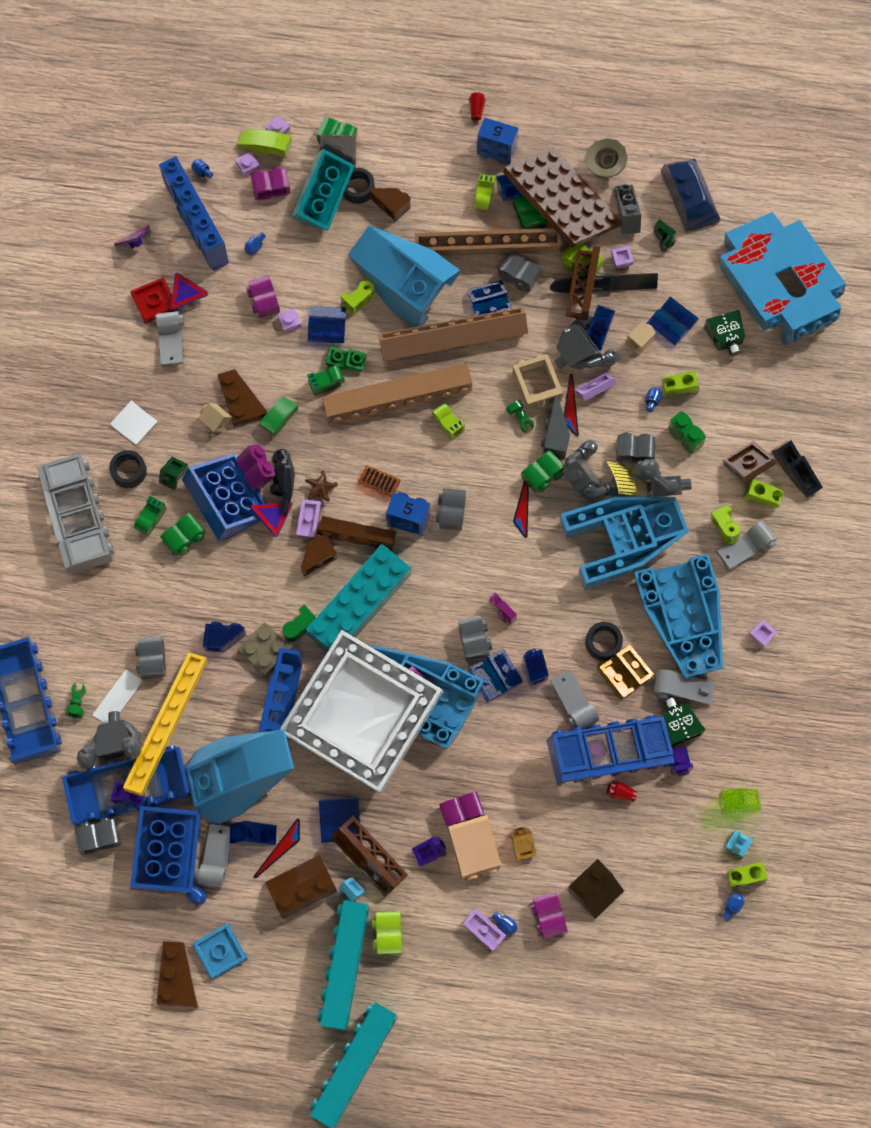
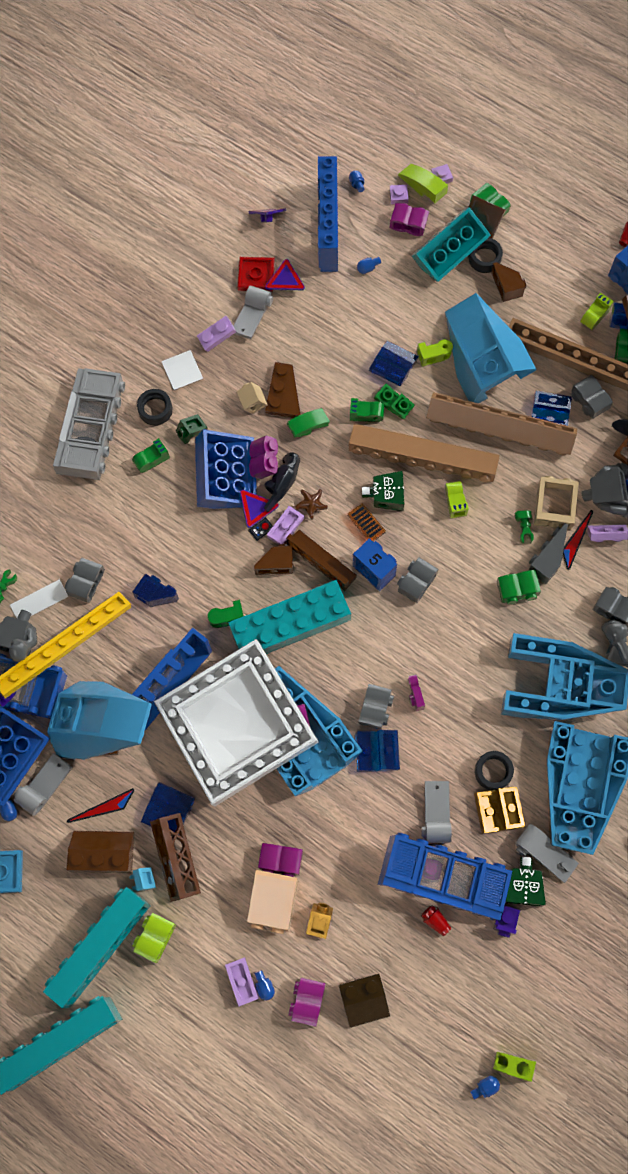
camera: 30 degrees right, 0 degrees up
(148, 373) = (216, 333): none -> lavender plate
(183, 534) = (169, 486): green brick -> none
(253, 834) = (85, 782): clear blue slope -> none
(262, 648) = (183, 618): dark tan plate -> none
(264, 297) = (351, 313): magenta brick -> none
(287, 533) = (261, 529): none -> sticker
(289, 320) = (362, 344): lavender plate -> none
(383, 444) = (386, 491): none -> dark green torso
(429, 851) = (231, 881): dark purple bracket -> none
(521, 513) = (480, 614): sticker -> none
(534, 667) = (416, 762): clear blue slope -> none
(583, 477) = (553, 612): dark grey torso -> none
(623, 478) = (590, 629): light yellow sticker -> none
(738, 844) = (522, 1030): medium azure tile -> none
(739, 800) = (544, 989): clear neon green slope -> none

